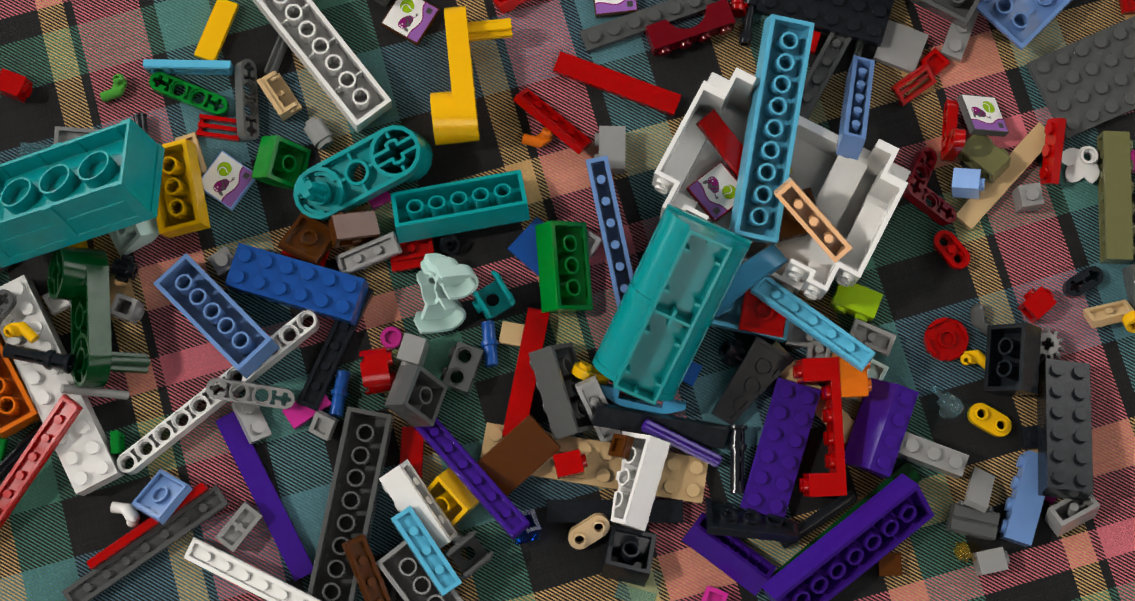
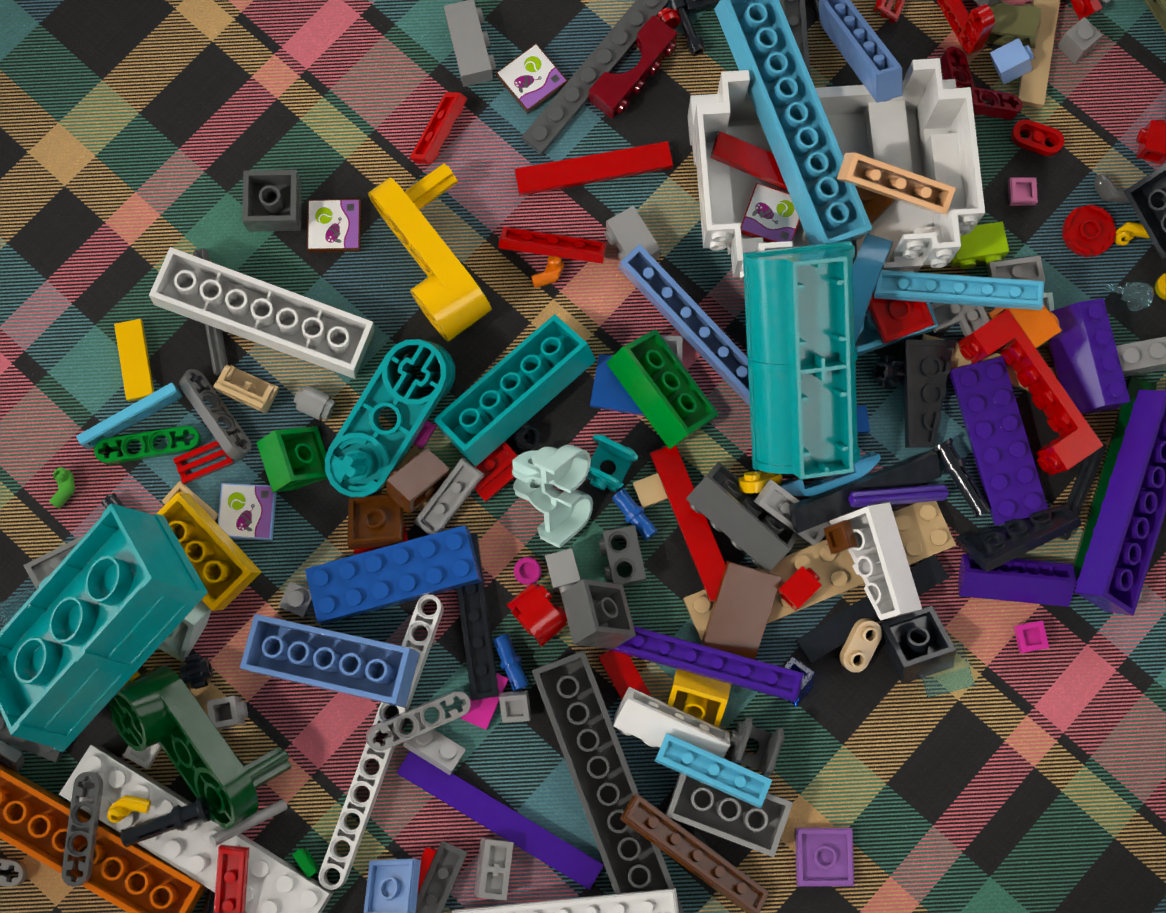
camera: 30 degrees left, 0 degrees up
(915, 282) = (1022, 191): none -> bright pink tile

